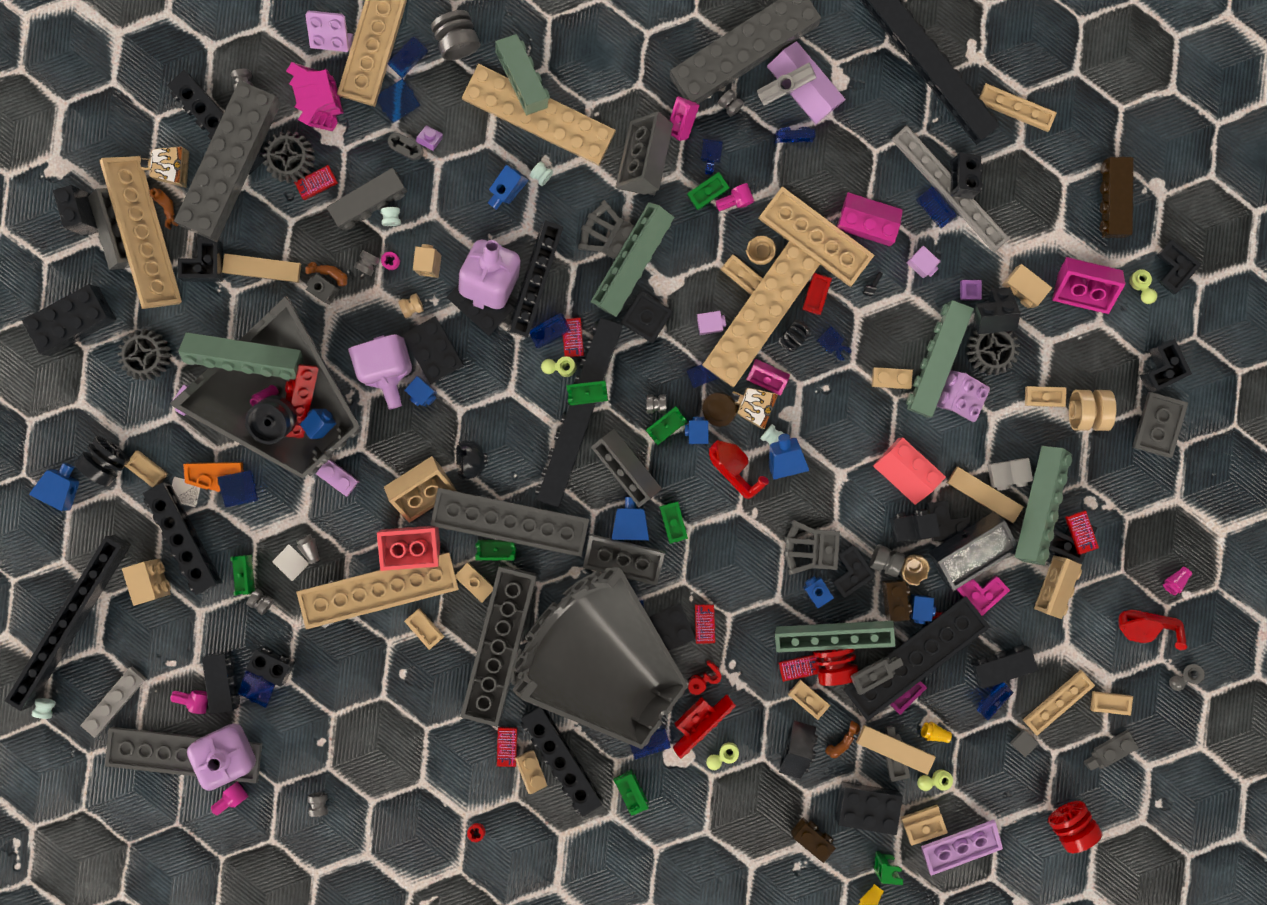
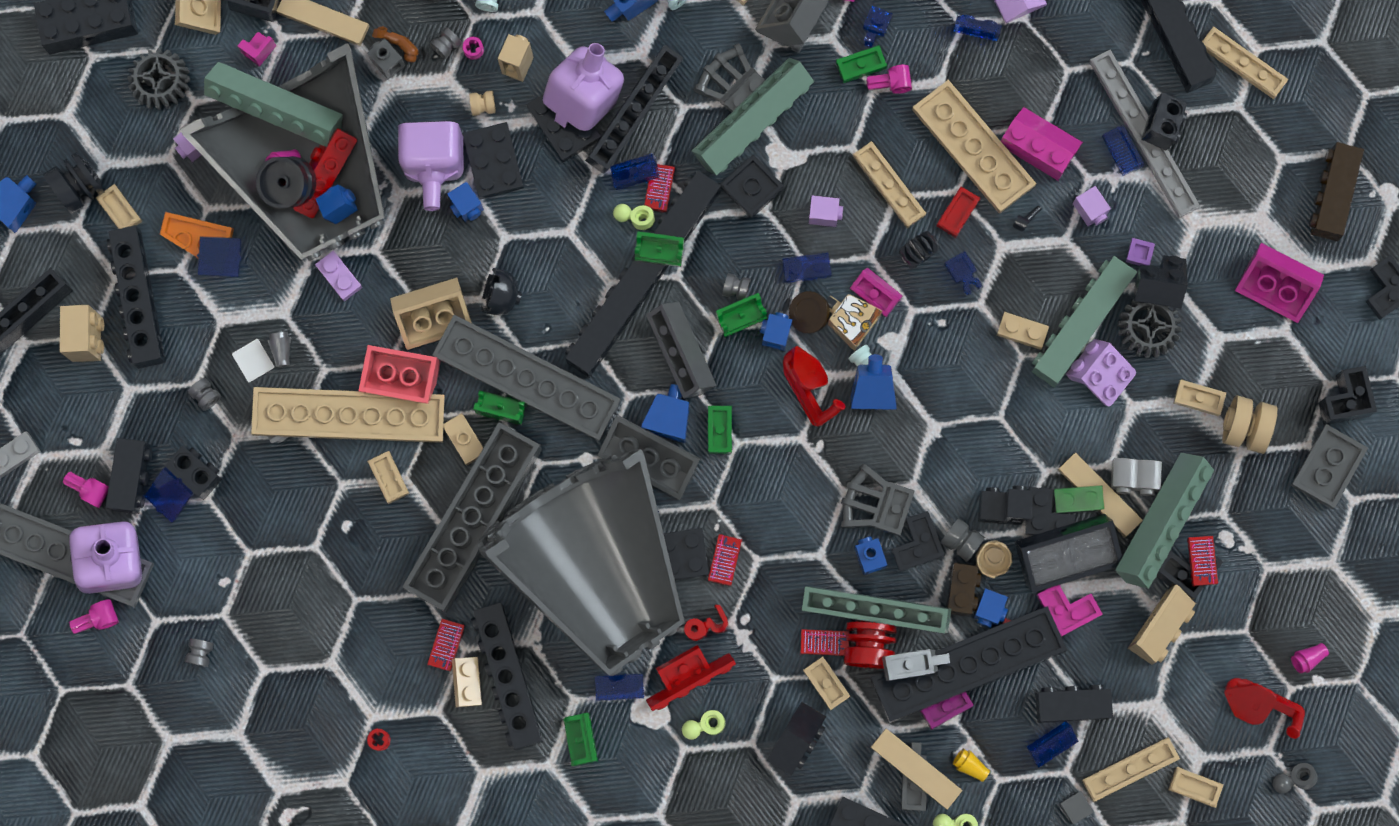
camera: 15 degrees right, 10 degrees down
(186, 493) = (156, 247): white sticker -> none
(216, 307) = (258, 48): none -> dark pink panel
(243, 574) = (193, 357): green hinge -> none
(761, 250) = (905, 144): tan hair -> none
(761, 314) = (886, 216): tan plate -> none
(840, 748) = (855, 751): dark orange arm -> none
(909, 471) = (1015, 441): coral slope -> none
(970, 503) = (1079, 499): none -> green plate
(1027, 286) = (1207, 265): tan brick -> none
(1148, 295) = (1349, 312): yellowish green plate -> none

